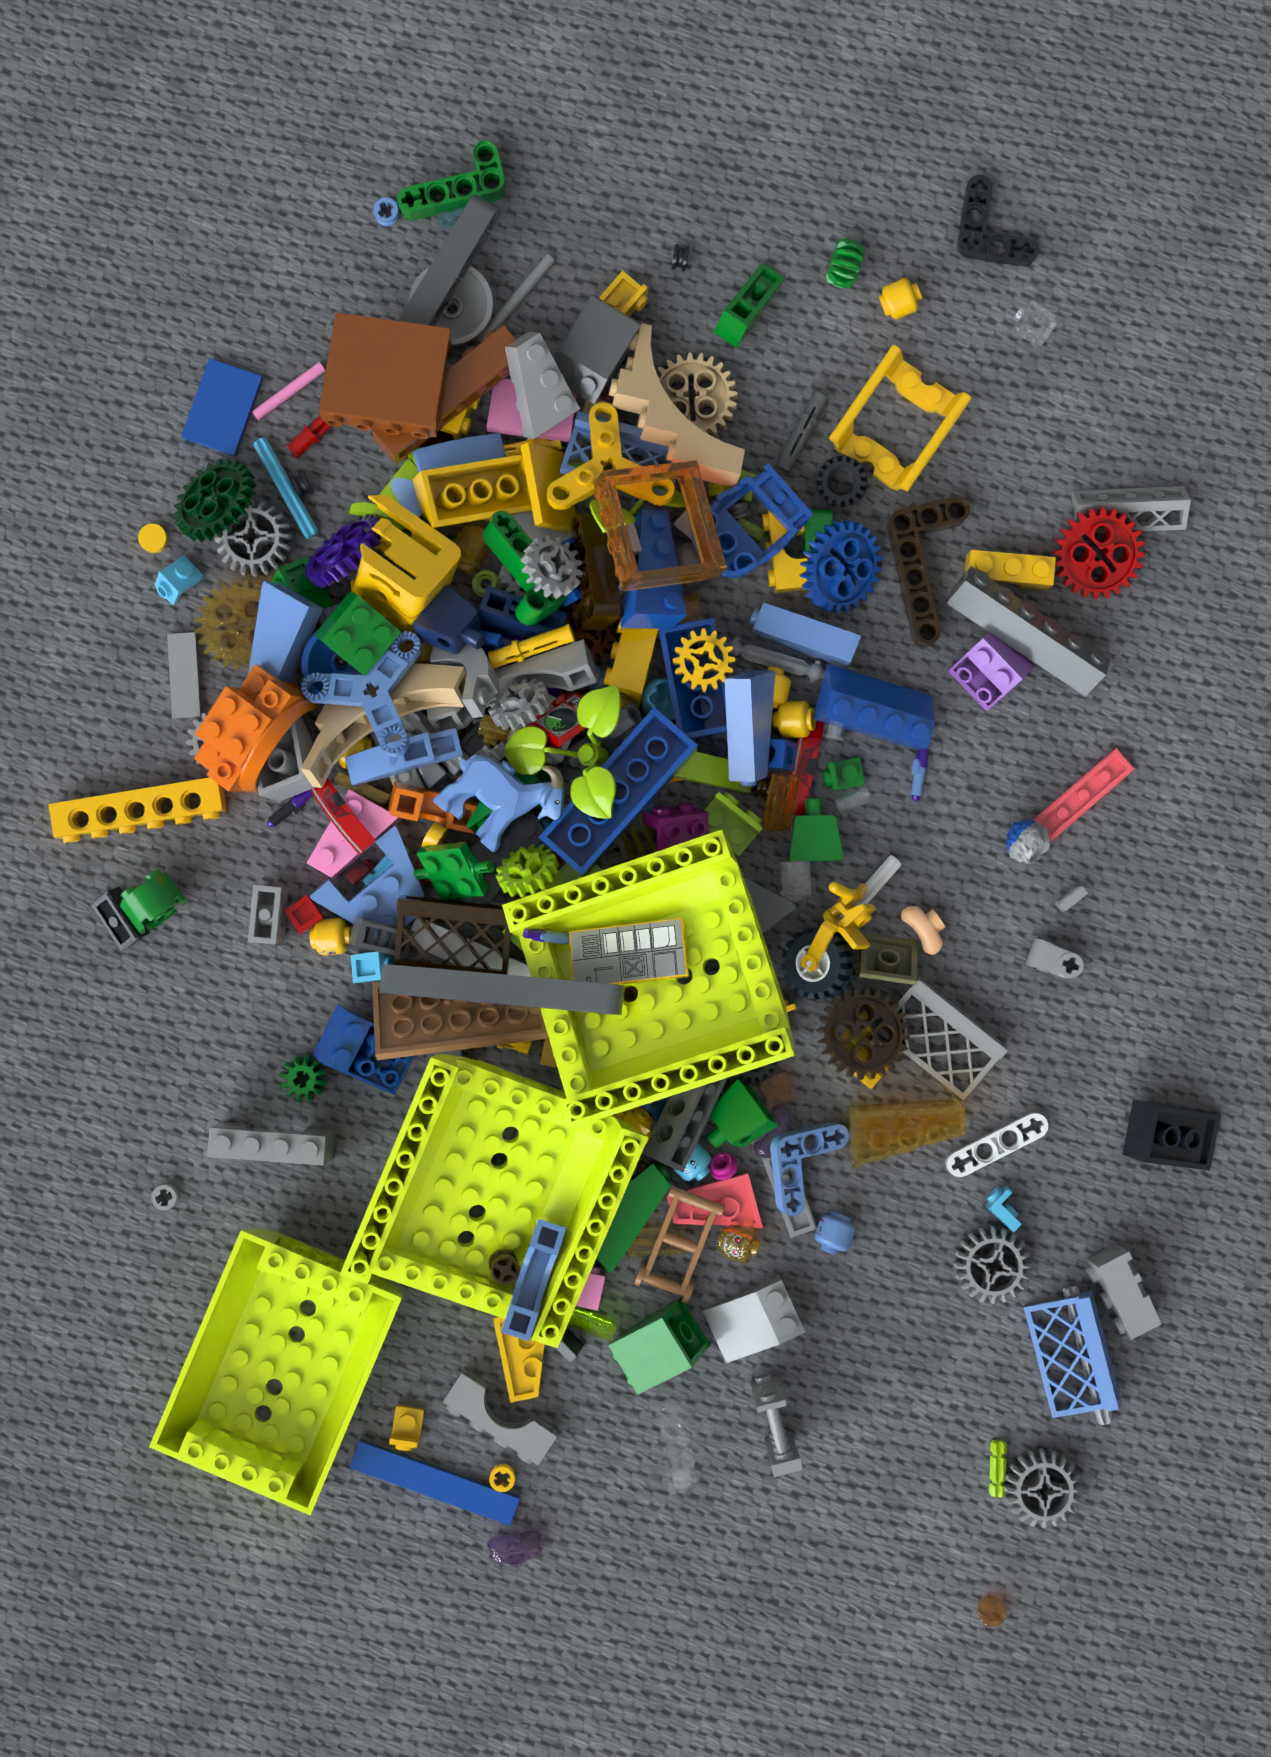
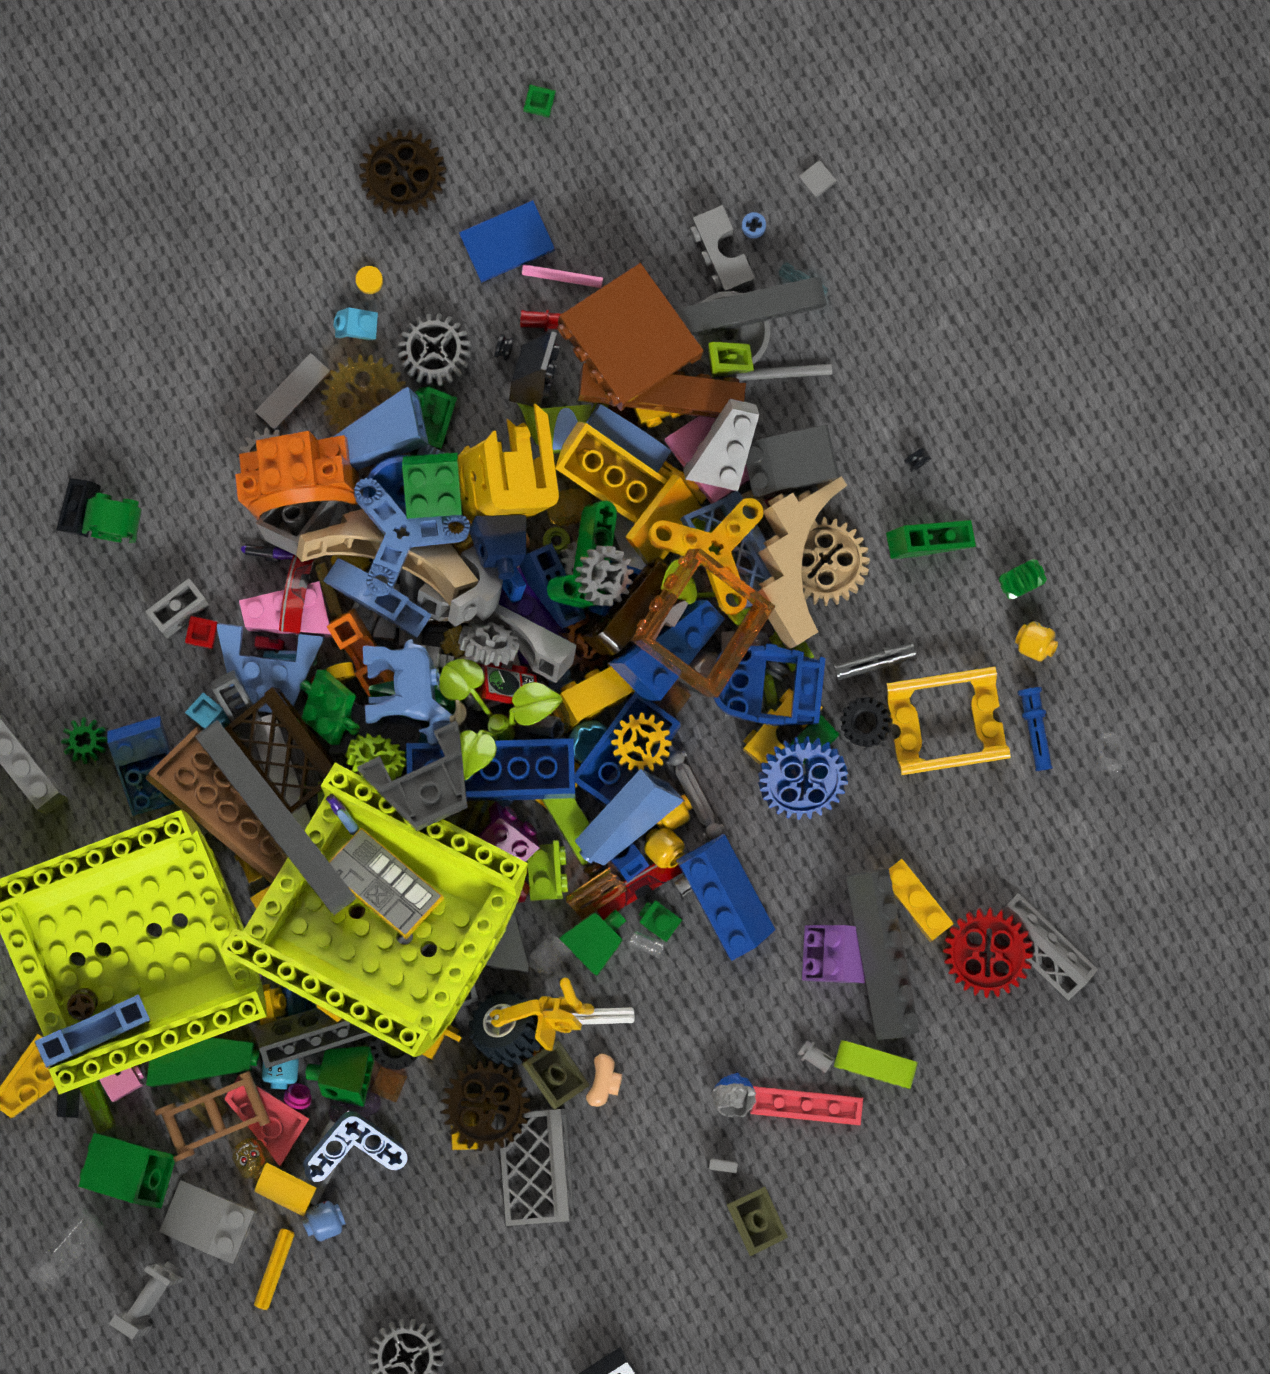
camera: 50 degrees right, 5 degrees down
(65, 814) = (117, 401): yellow brick -> none
(89, 459) = (382, 186): none -> dark brown gear
(137, 282) = (539, 101): none -> green tile
(214, 500) = (434, 299): dark green gear -> none
(285, 488) = (491, 338): medium azure axle -> none
(330, 936) = (203, 665): yellow head -> none
(341, 475) = (534, 370): none -> black slope
(342, 551) = (478, 419): dark purple gear -> none
(396, 131) = (817, 179): none -> light grey tile
(404, 263) = (710, 230): none -> light grey arch
(452, 185) = (814, 254): green beam -> none
(471, 321) = (729, 358): none -> lime slope
(520, 650) = (527, 608): yellow pin -> none
(595, 852) = (427, 792): none -> dark grey wing
(626, 294) = (851, 446): yellow bracket -> none
(786, 1241) = (285, 1189): none -> yellow slope
(805, 635) = (731, 798): medium blue slope -> none
(834, 1302) = (274, 1269): none -> yellow axle
(901, 1127) = (443, 1196): clear yellow wedge -> none
(916, 564) = (857, 829): dark brown beam -> none
(918, 770) = (712, 971): medium blue piece -> none
(983, 238) = (1138, 661): black beam -> none
(992, 380) = (1043, 761): none -> blue pin
(994, 1139) = (495, 1282): white beam -> none
(1005, 1212) = (451, 1331): medium azure bracket -> none
(1050, 958) = (666, 1190): light grey piece -> none
(1053, 753) = (815, 1056): none -> light grey pin
(1101, 715) = (875, 1064): none -> lime beam
(1134, 912) = (757, 1221): none -> olive slope

